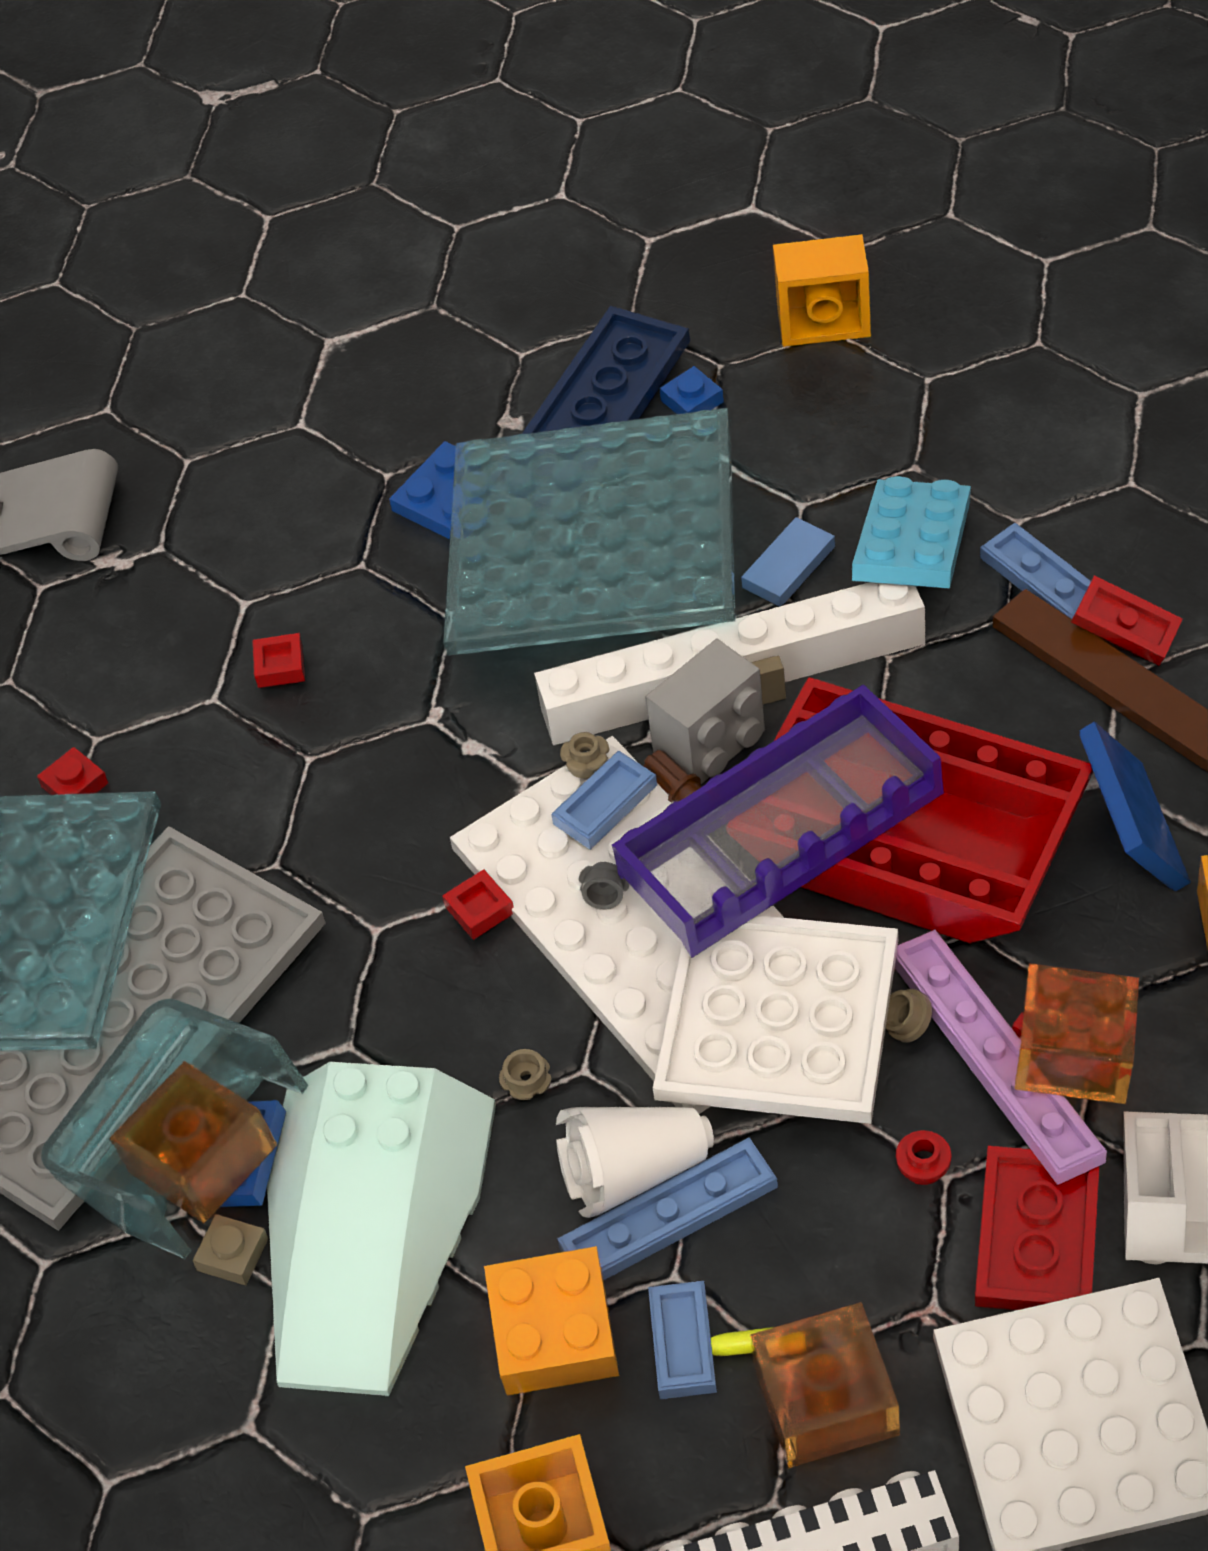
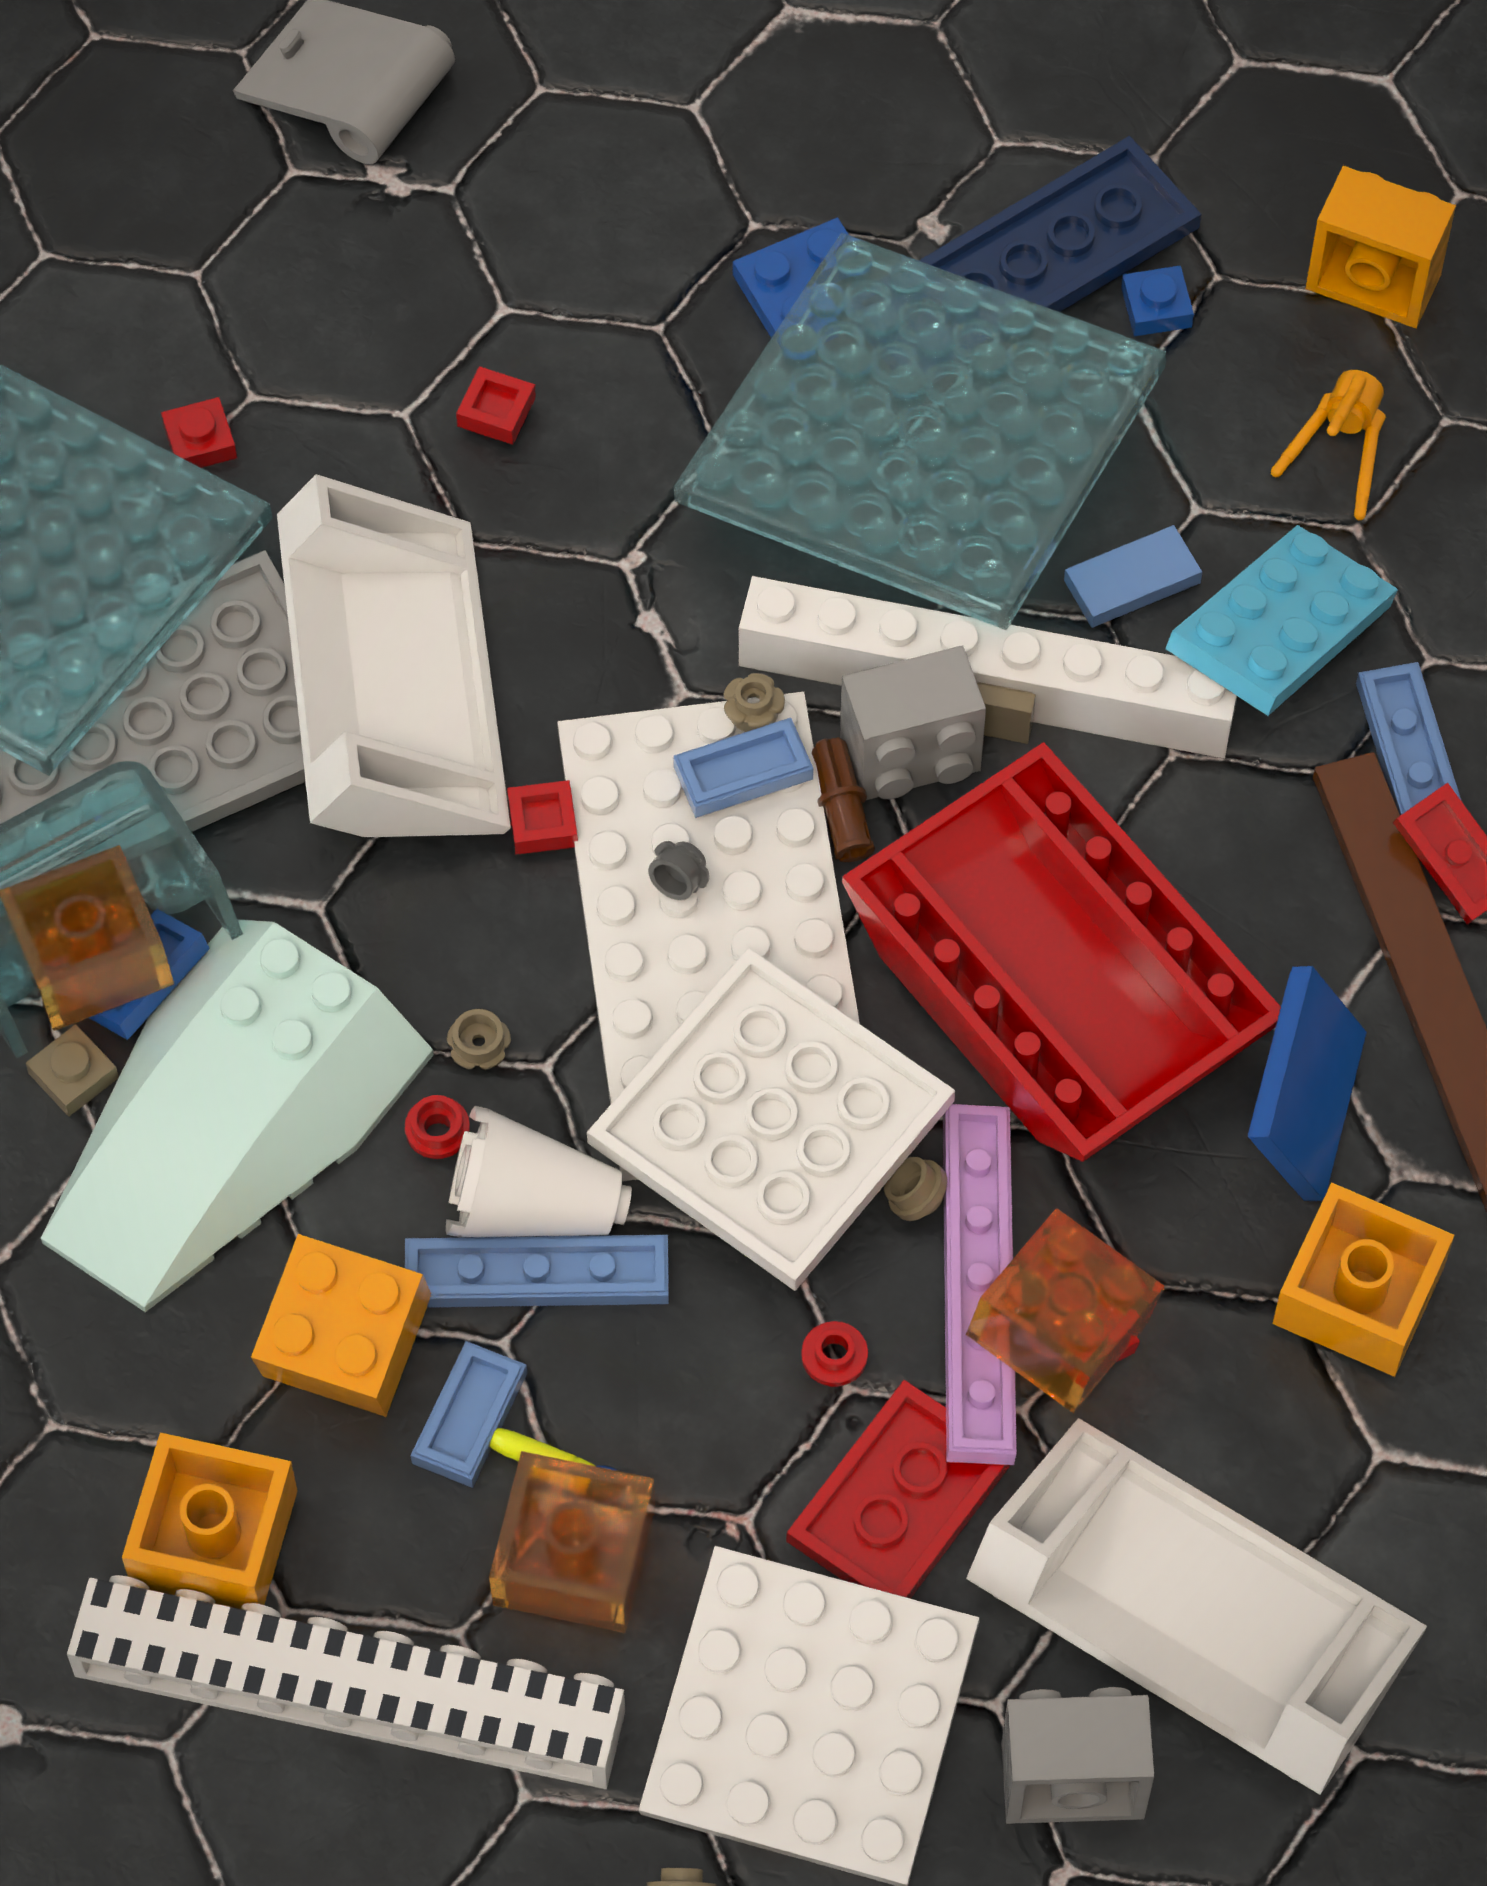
camera: 20 degrees right, 10 degrees up
(307, 856) = (390, 666): none -> white slope
(527, 1137) = (431, 1111): none -> red plate
(779, 818) = (897, 898): window -> none
(865, 397) = (1348, 409): none -> light orange plant

